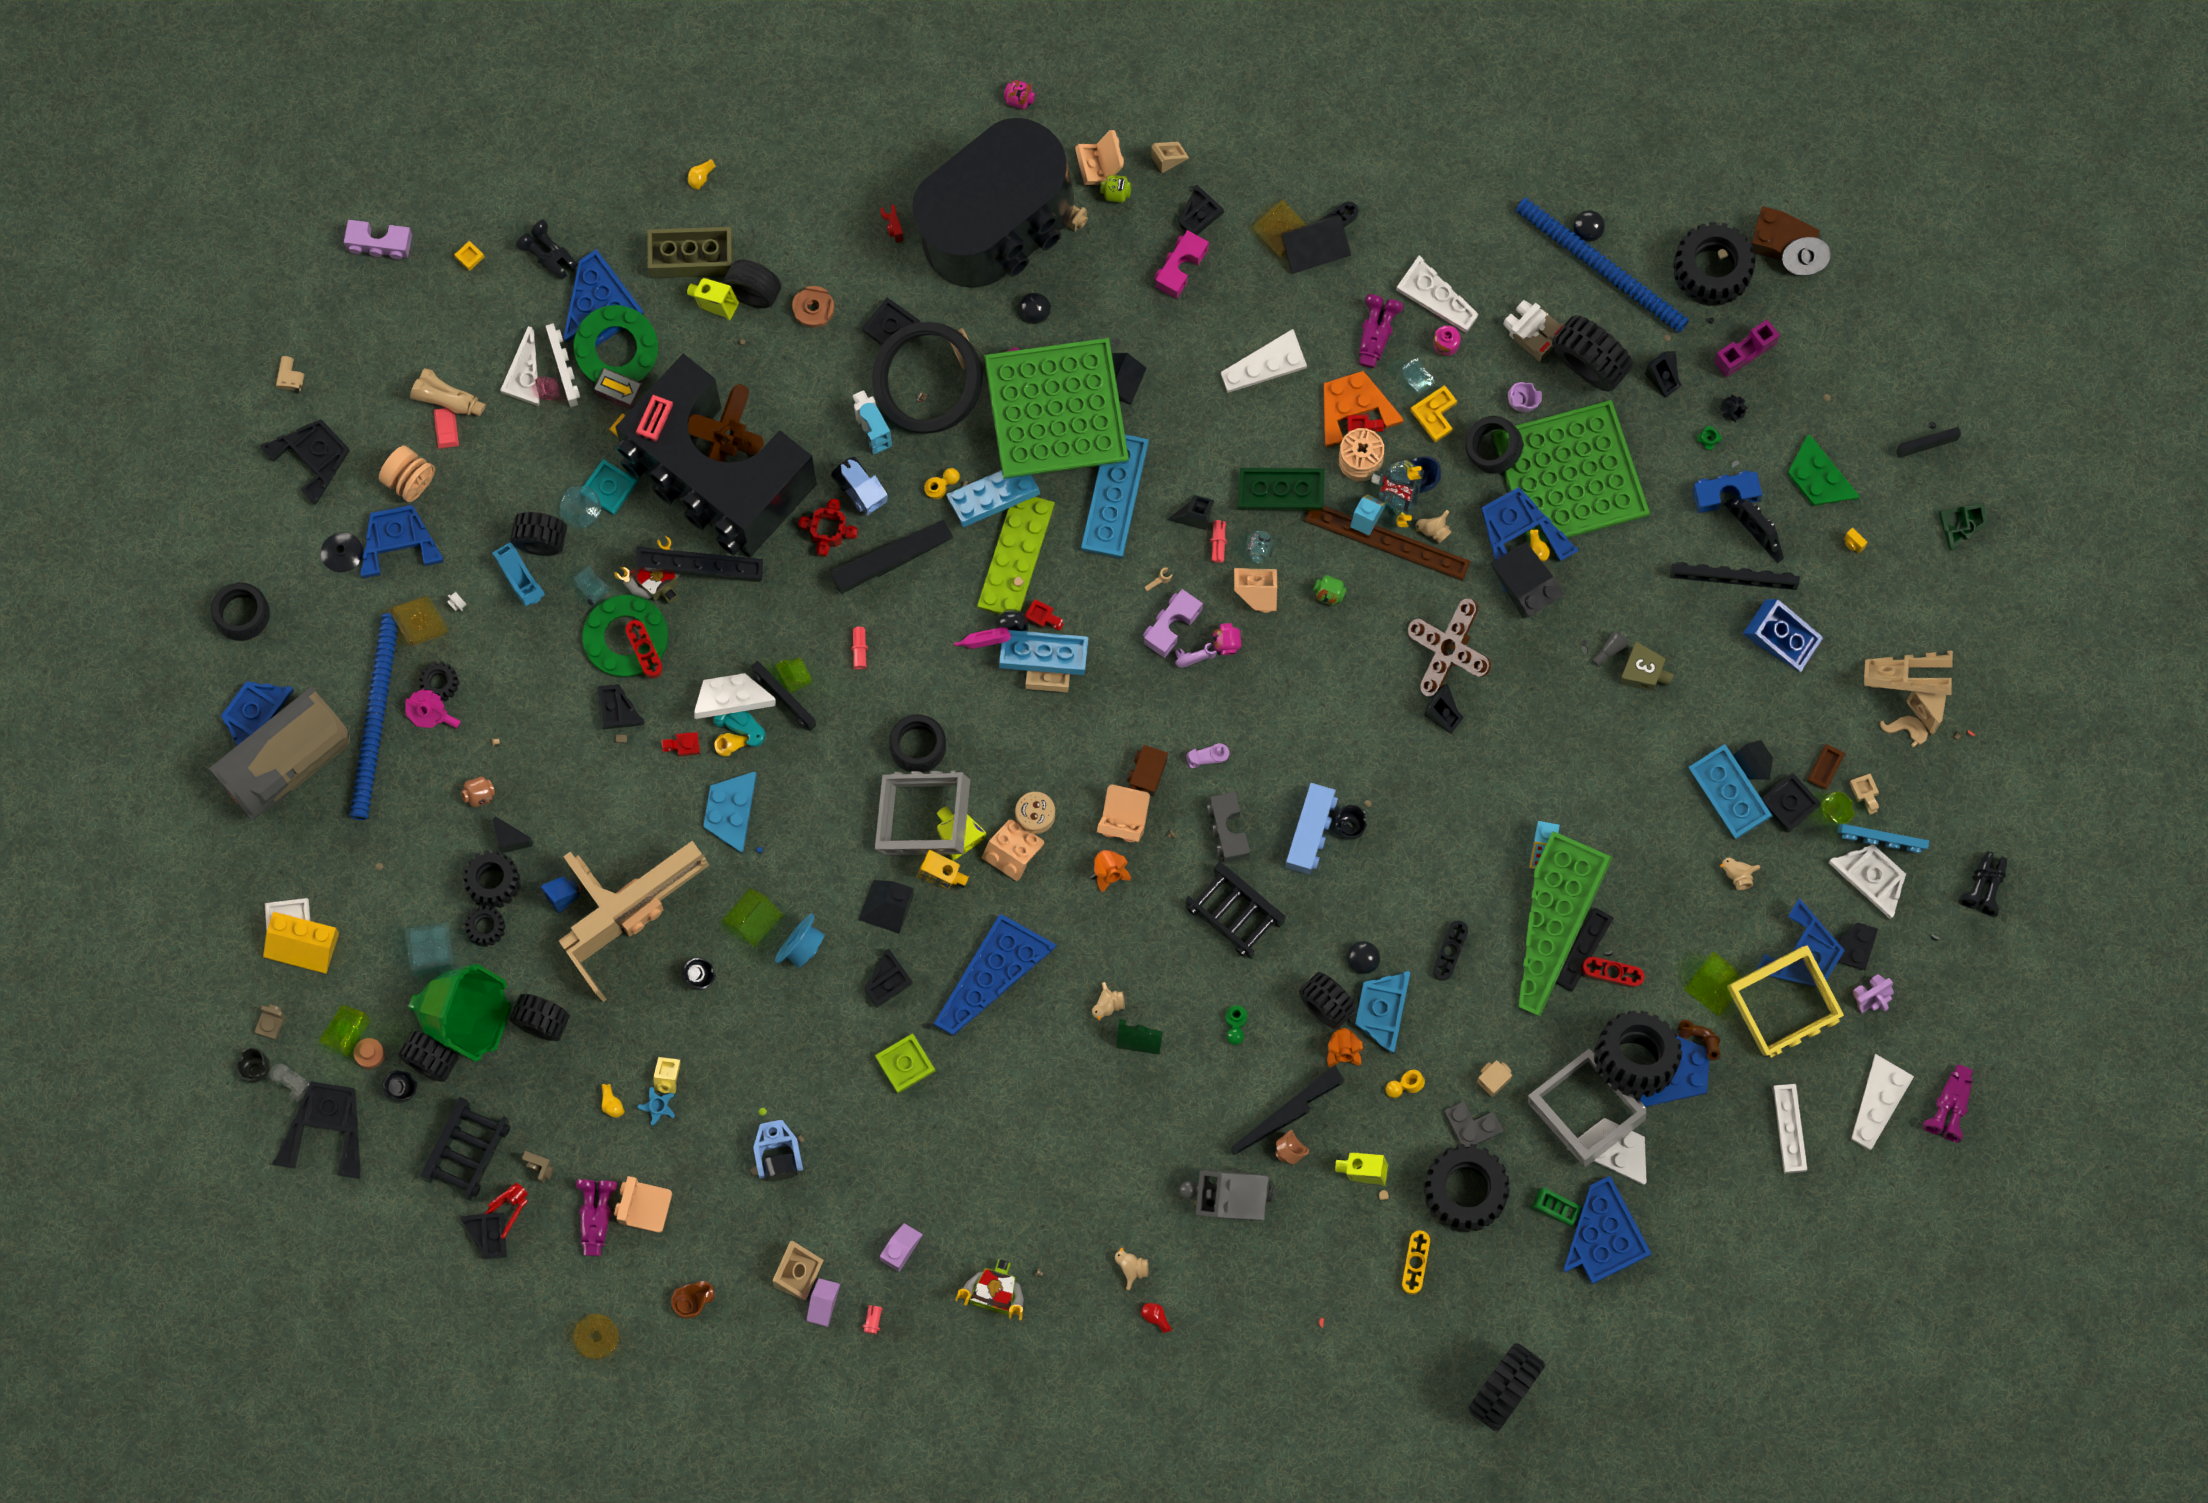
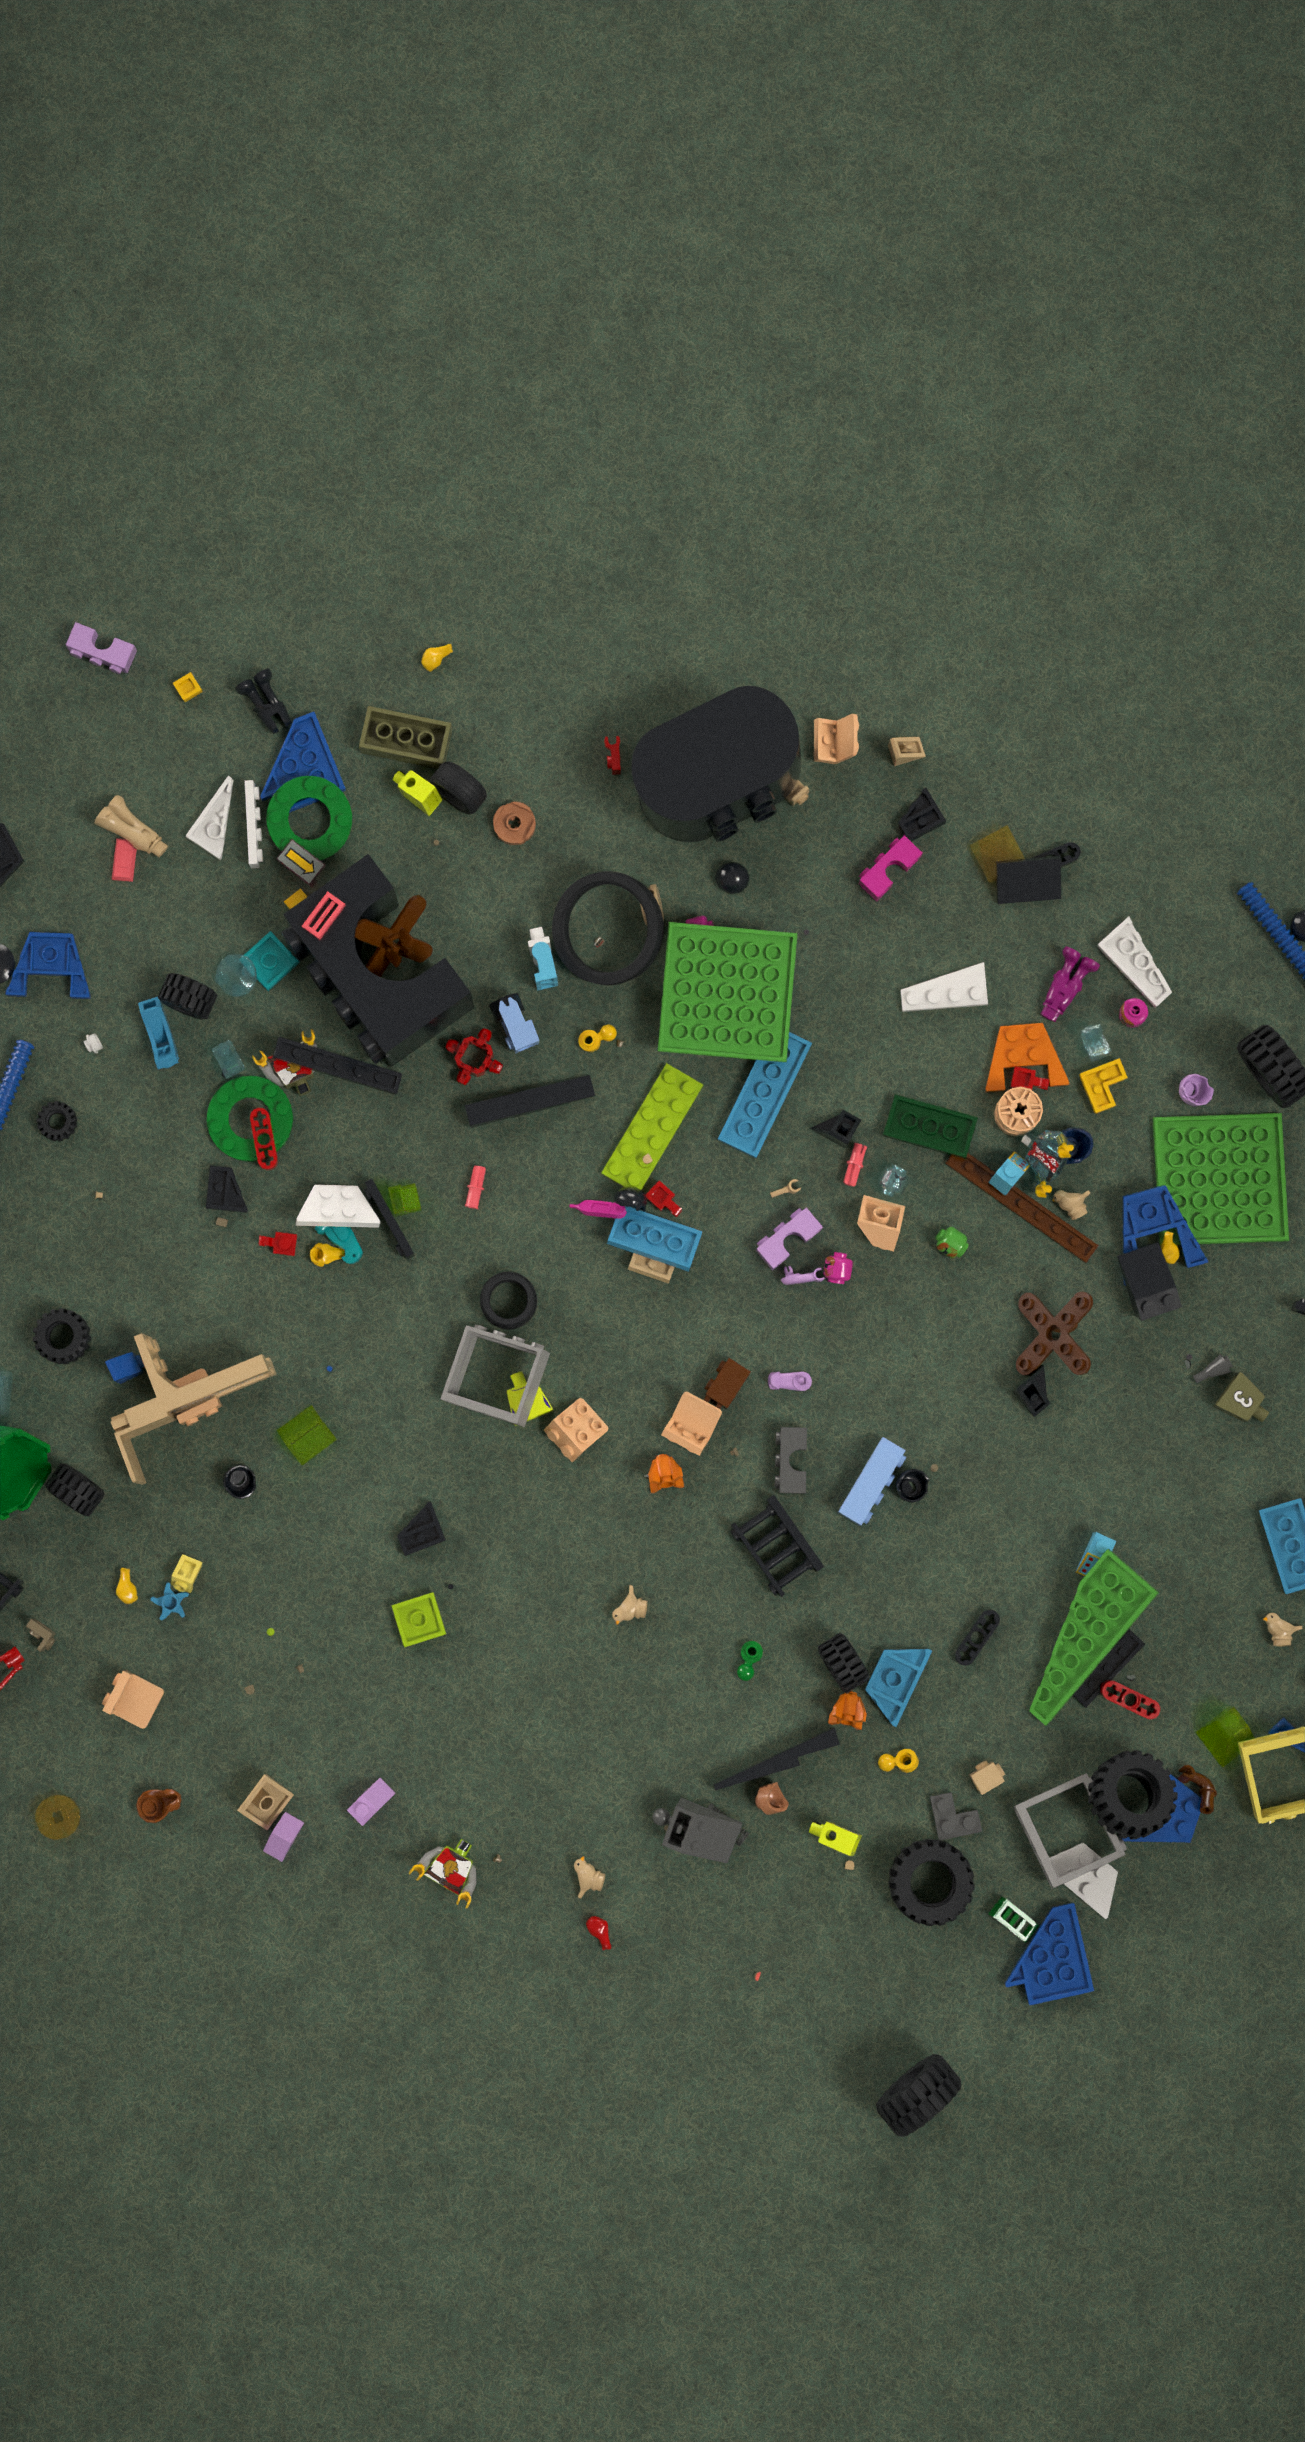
camera: 10 degrees right, 10 degrees up
(406, 473) = (73, 901): light nougat wheel -> none
(419, 620) = (51, 1054): clear yellow plate -> none
(427, 710) = (40, 1149): dark pink piece -> none
(478, 792) = (69, 1243): nougat head -> none
(485, 913) = (32, 1377): black tyre -> none
(509, 837) = (87, 1297): black slope -> none
(547, 388) = (232, 844): clear pink plate -> none
(594, 1221) = (83, 1701): magenta piece -> none
(730, 809) = (310, 1321): dark azure wing -> none
(778, 1166) = (269, 1694): light blue piece -> none
(801, 944) = (345, 1477): dark azure piece -> none
(872, 1320) = (326, 1866): coral pin -> none
(887, 321) = (585, 858): black plate -> none
(887, 905) = (439, 1456): black slope -> none
(933, 868) = (492, 1432): yellow torso -> none
(990, 496) = (640, 1064): dark azure plate -> none
(998, 964) = (535, 1541): blue wing -> none
(1019, 94) = (772, 649): dark pink head -> none
(1035, 812) = (606, 1398): tan head -> none
(1116, 188) = (844, 773): lime head -> none
(1128, 376) = (807, 971): black slope -> none
(1138, 1038) = (651, 1652): dark green slope -> none
(1363, 957) = (890, 1623): black hair -> none
(1418, 1279) = (851, 1953): yellow beam -> none
(1478, 431) = (1135, 1119): black tyre -> none
(1533, 330) = (1225, 1023): hips -> none
(1790, 1128) = (1261, 1899): white plate -> none

